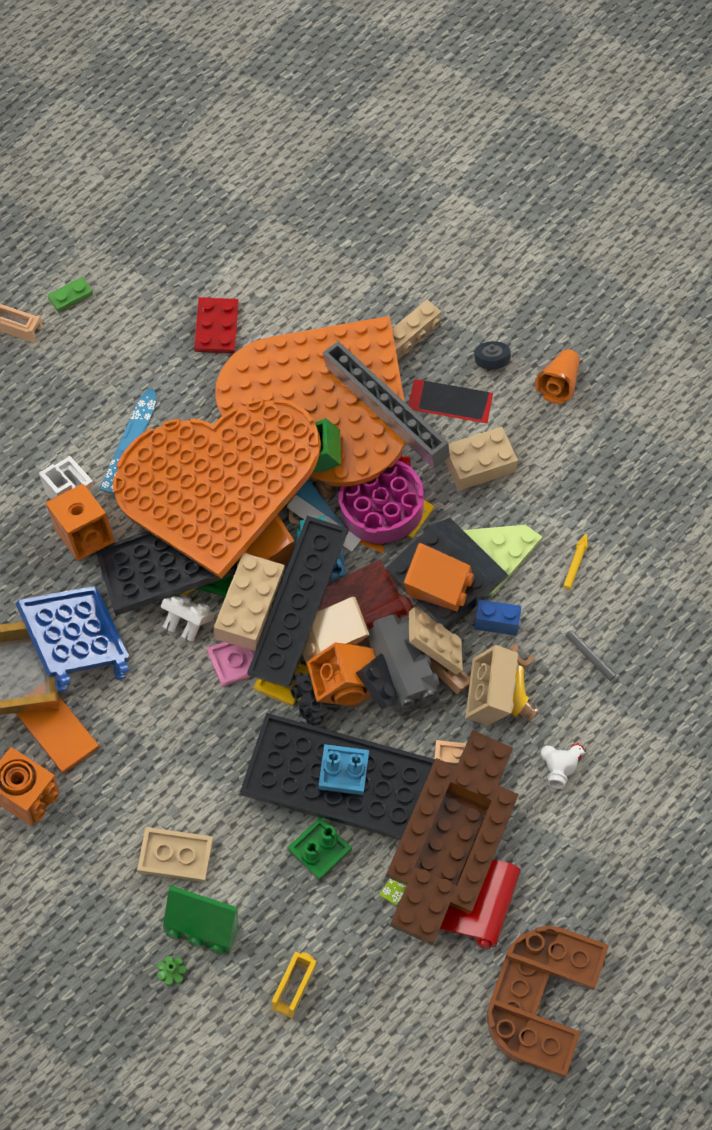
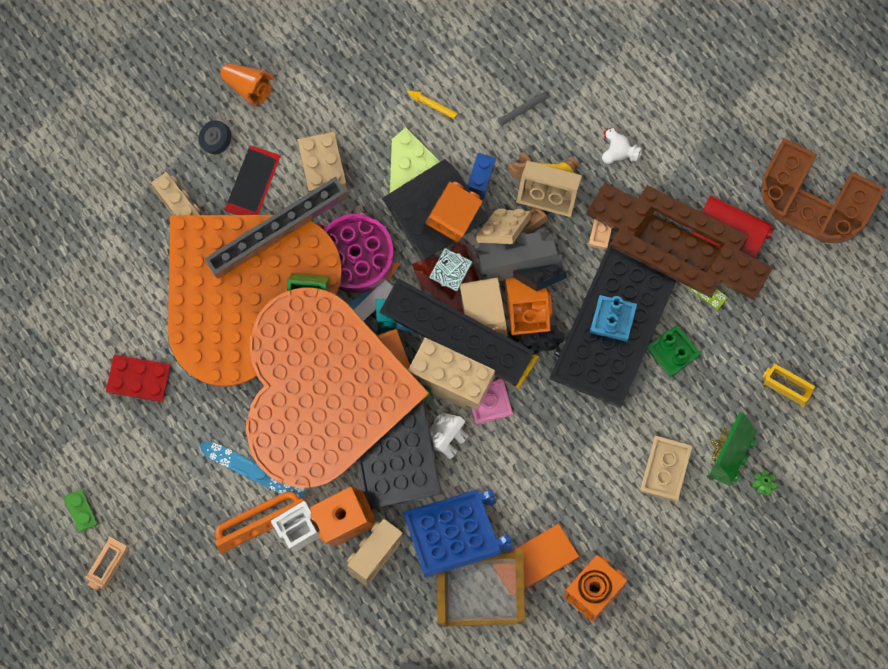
camera: 80 degrees left, 10 degrees up
(44, 558) = (374, 552): none -> tan brick
(64, 449) = (256, 528): none -> orange piece
(378, 596) = (450, 270): none -> light aqua piece

